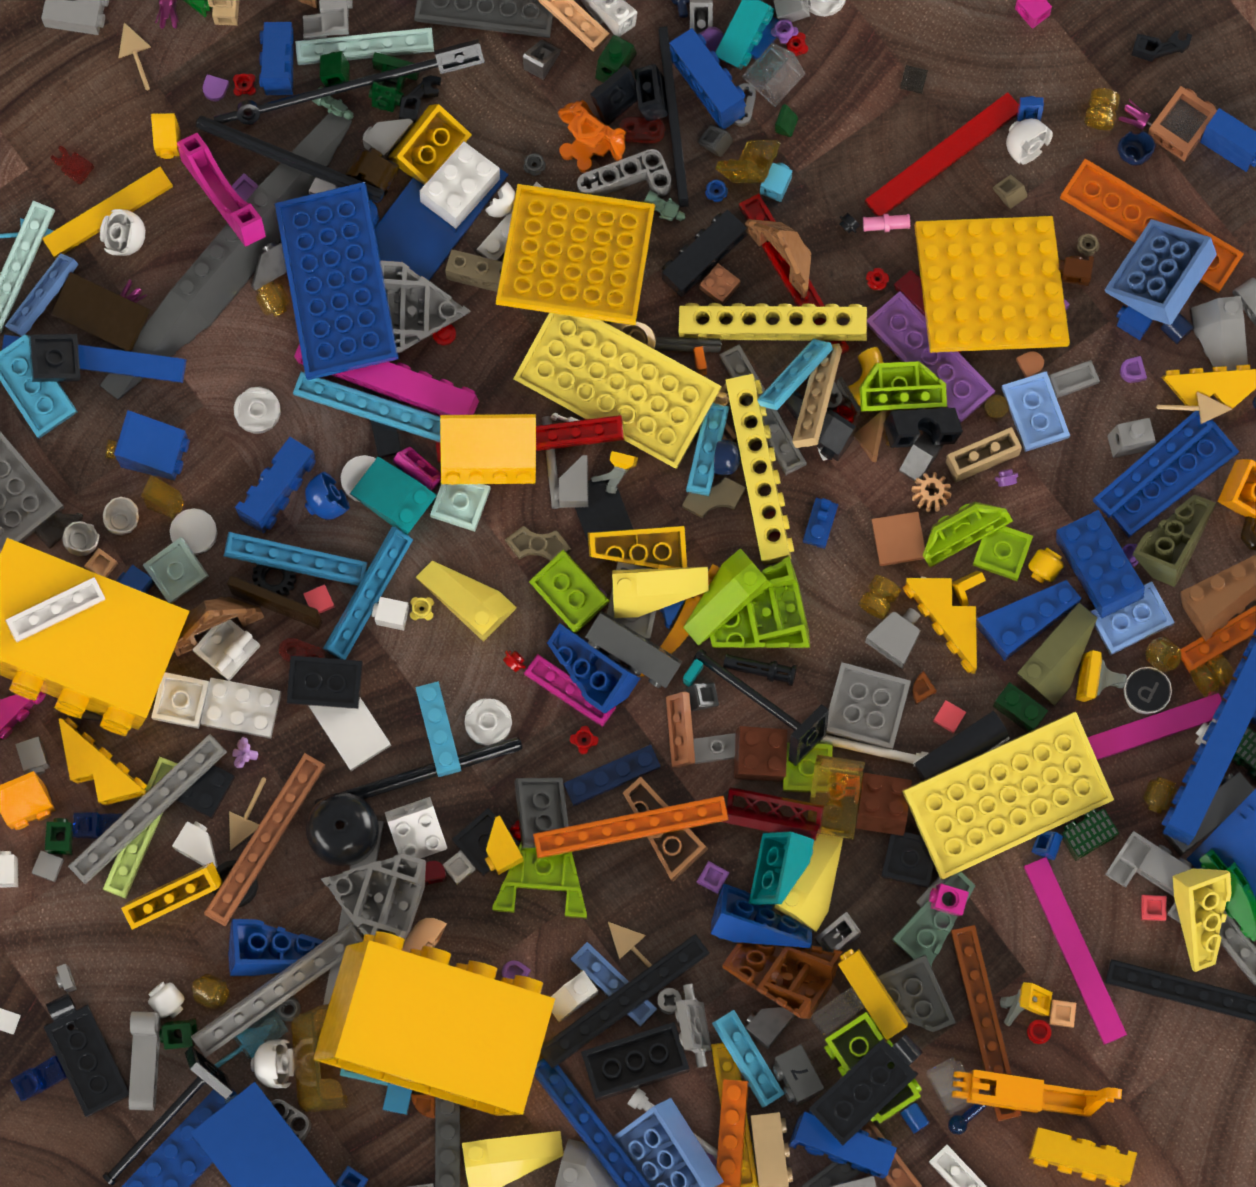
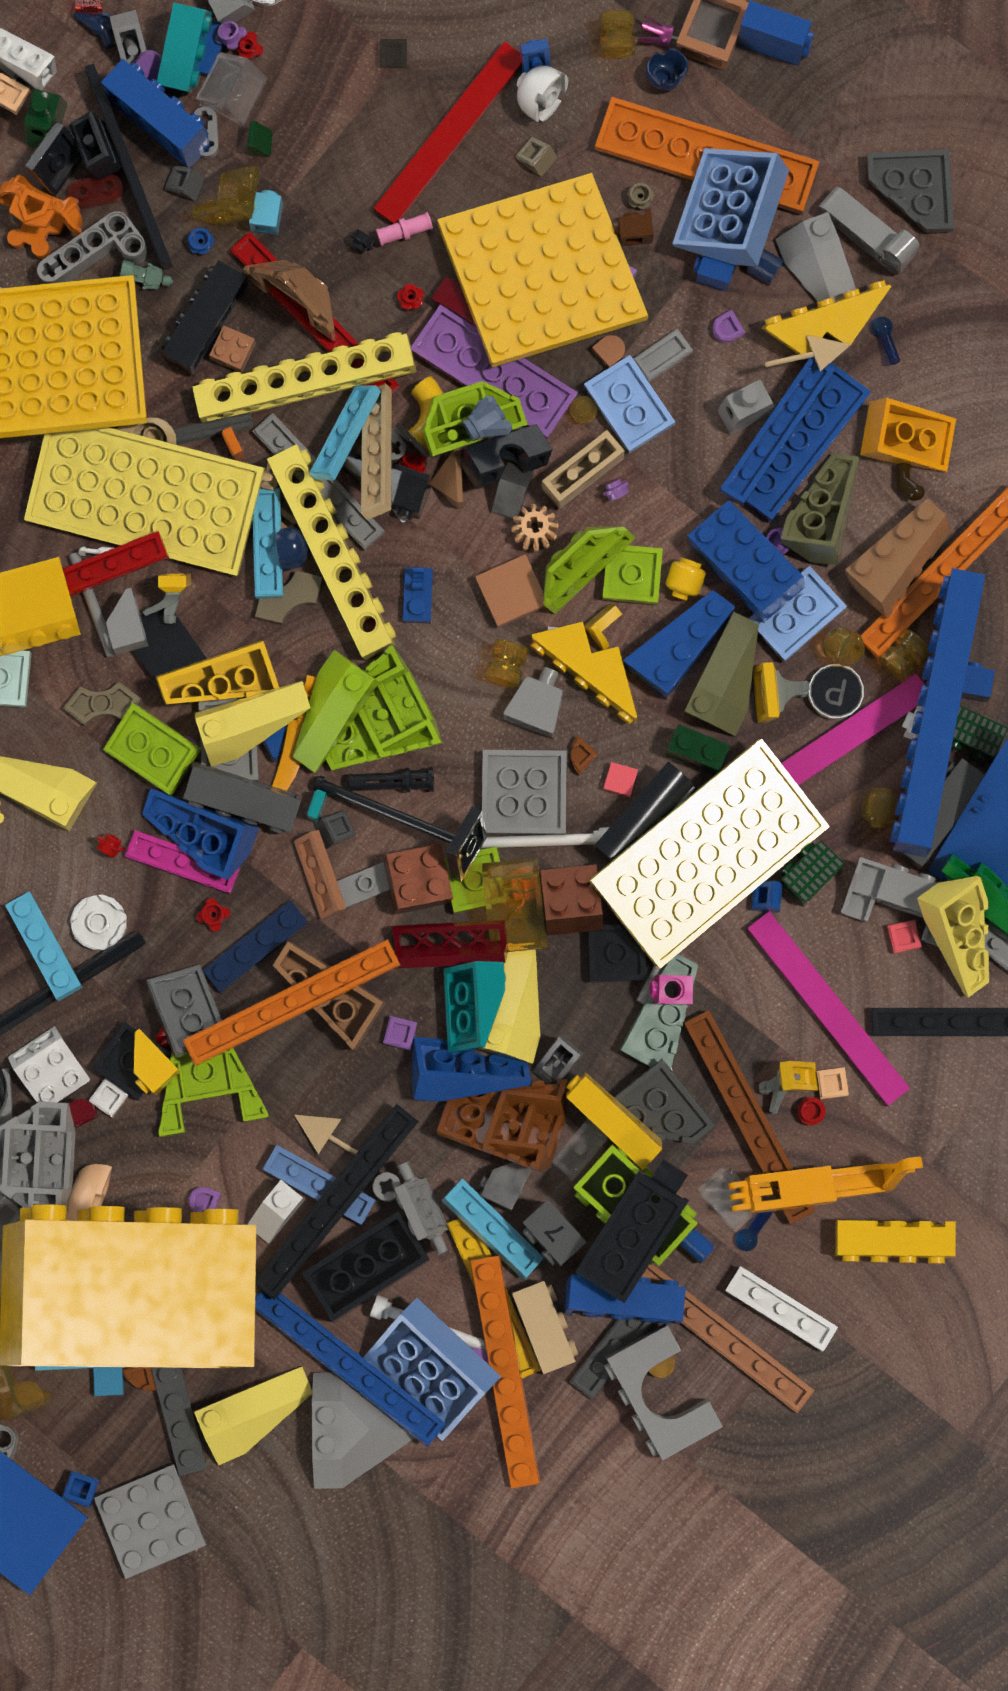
camera: 15 degrees left, 5 degrees up
(914, 393) = (486, 420): none -> sand blue rock

